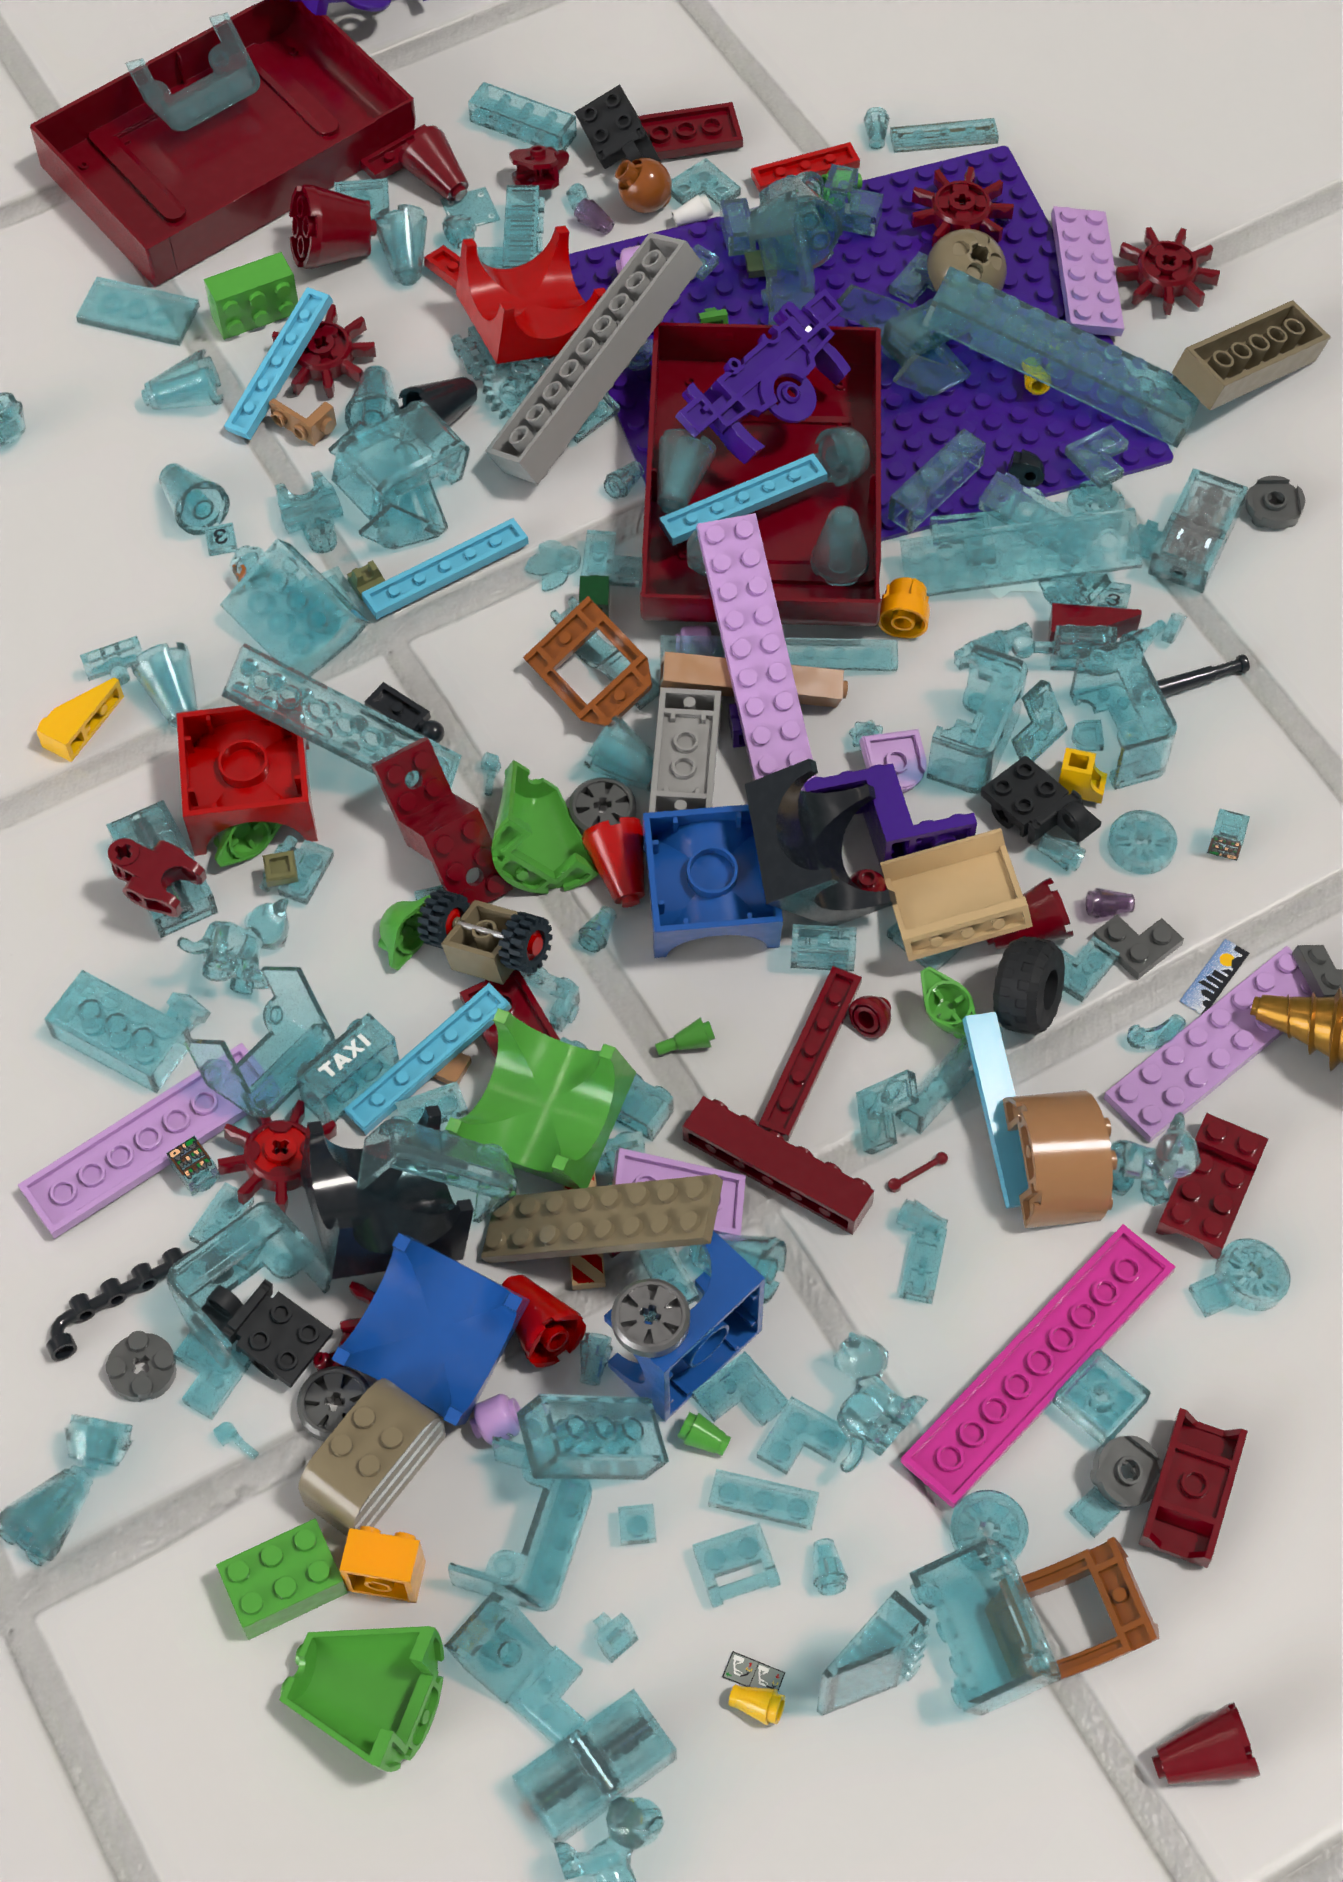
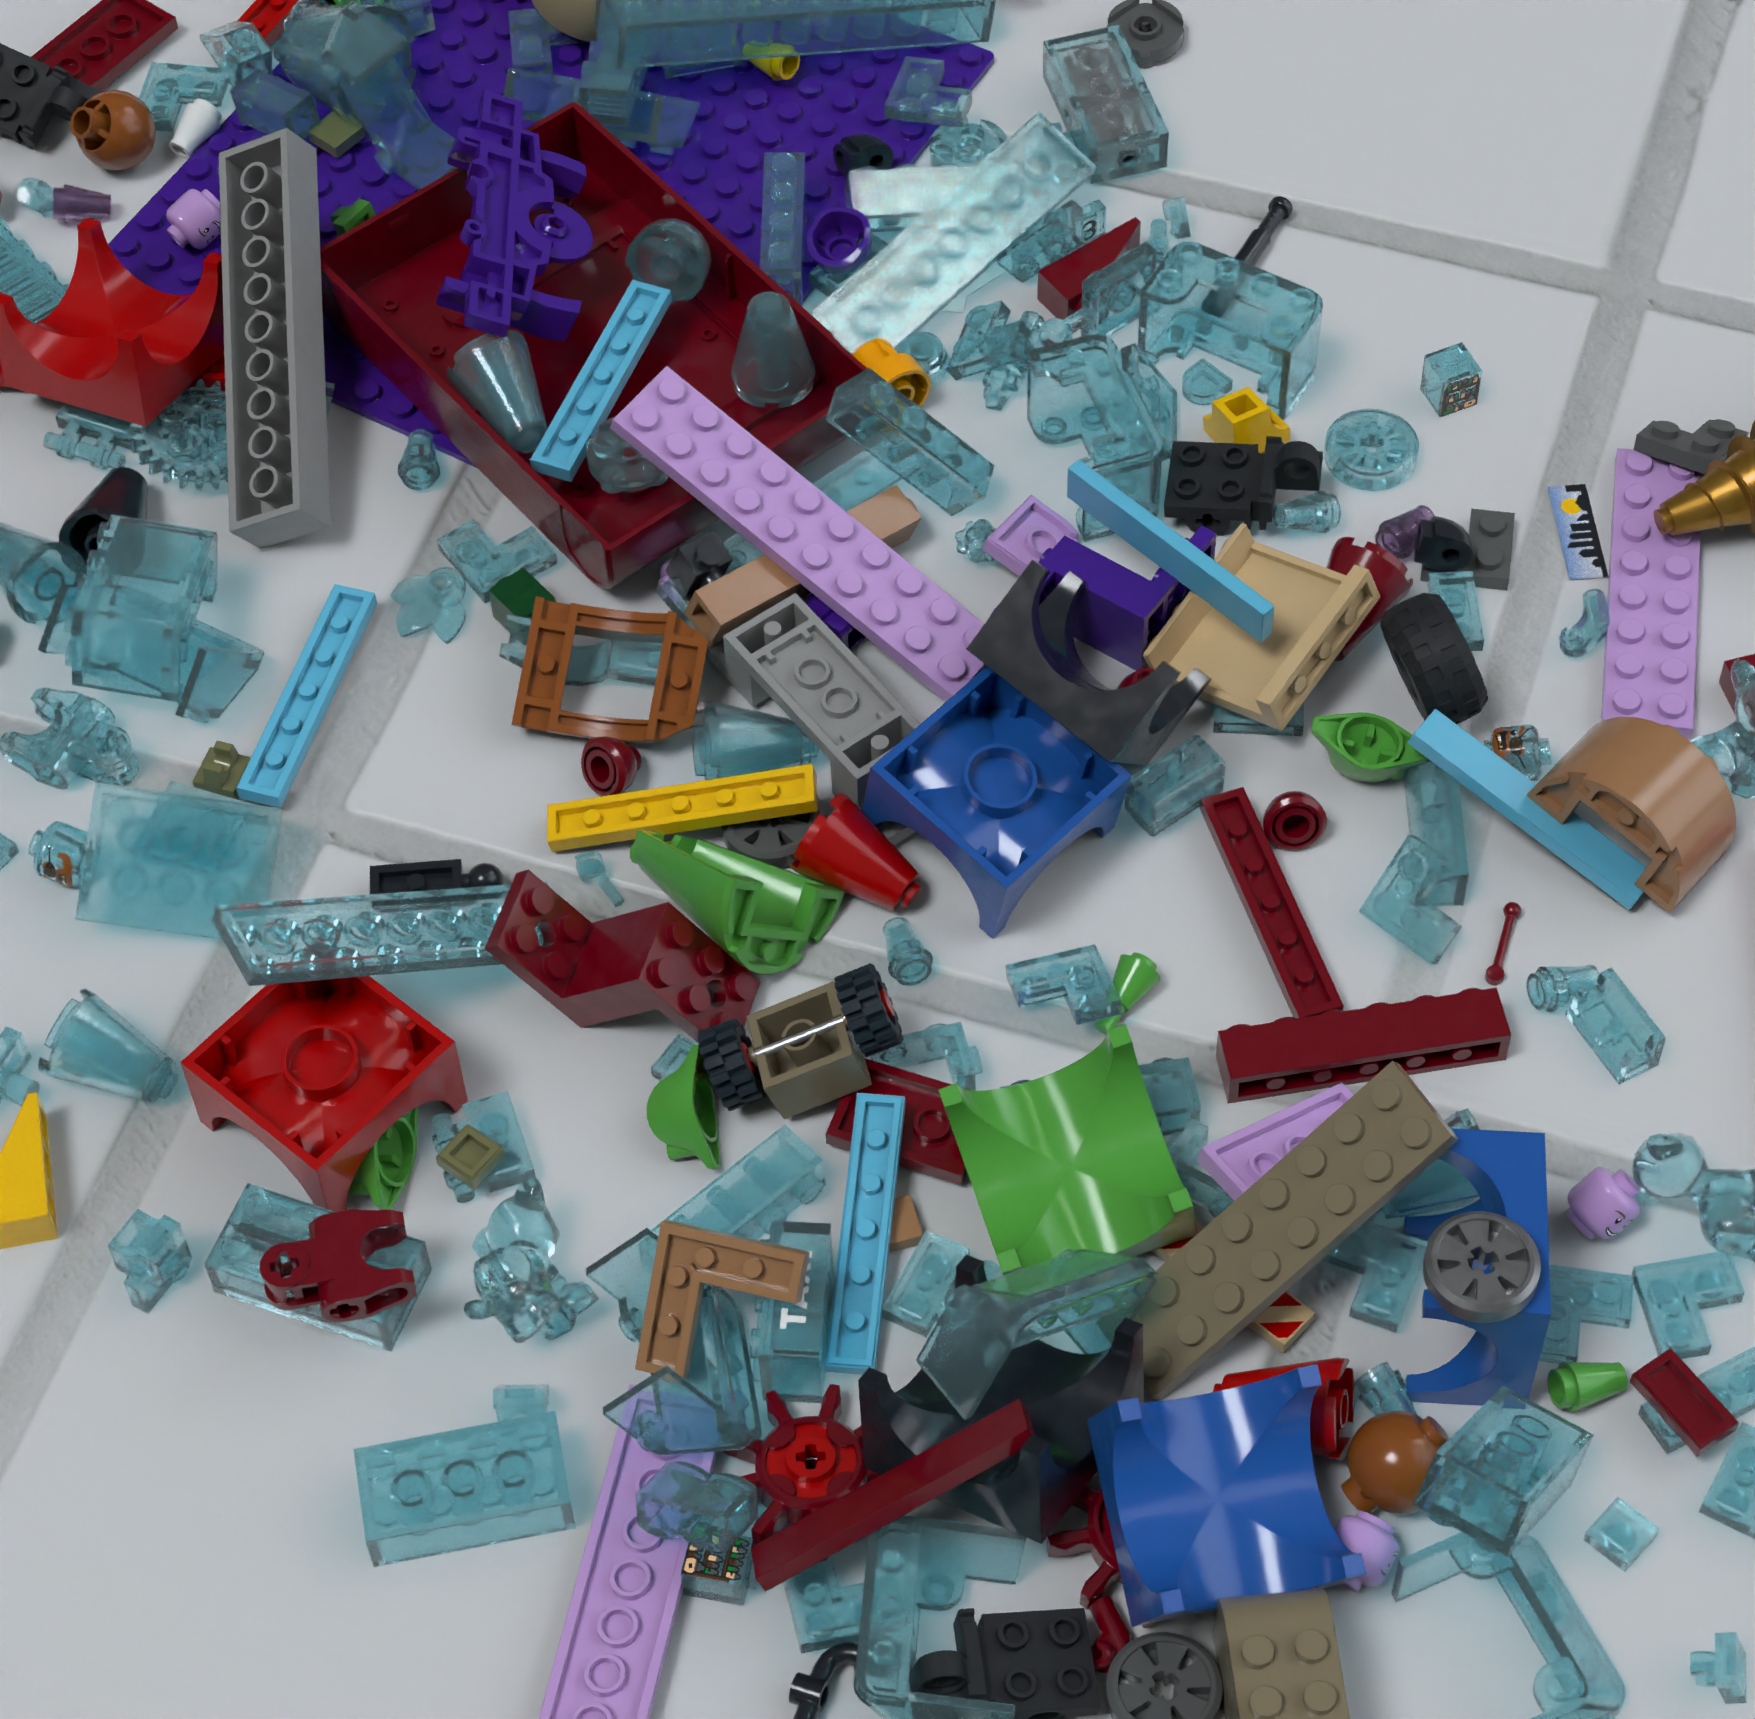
camera: 40 degrees left, 5 degrees down
(93, 804) = (151, 1256): none -> clear light blue brick
(200, 1126) = (697, 1506): none -> clear light blue brick
(281, 1194) = (891, 1495): none -> dark red tile
(308, 1003) = (699, 1256): none -> medium nougat plate
(384, 995) = (757, 1189): none -> clear light blue brick
(552, 717) = (609, 765): none -> dark red brick
(554, 1376) = (1391, 1461): none -> dark orange brick
(560, 766) = (682, 807): none -> yellow plate
(665, 1010) = (1071, 974): none -> clear light blue plate
(685, 637) = (698, 564): none -> black brick
(737, 1486) = (1684, 1402): none -> dark red tile
(749, 181) = (238, 50): none -> clear light blue slope
(810, 1350) = (1603, 1203): none -> lavender head
(868, 651) = (910, 442): none -> clear light blue brick
(933, 813) = (1170, 551): none -> medium azure tile
(945, 610) = (928, 353): none -> clear light blue cone
(957, 516) = (841, 252): none -> dark purple helmet
(987, 624) = (987, 341): none -> clear light blue plate
(1032, 1073) = (1521, 749): none -> clear light blue head
(1112, 924) = (1442, 545): none -> black piece

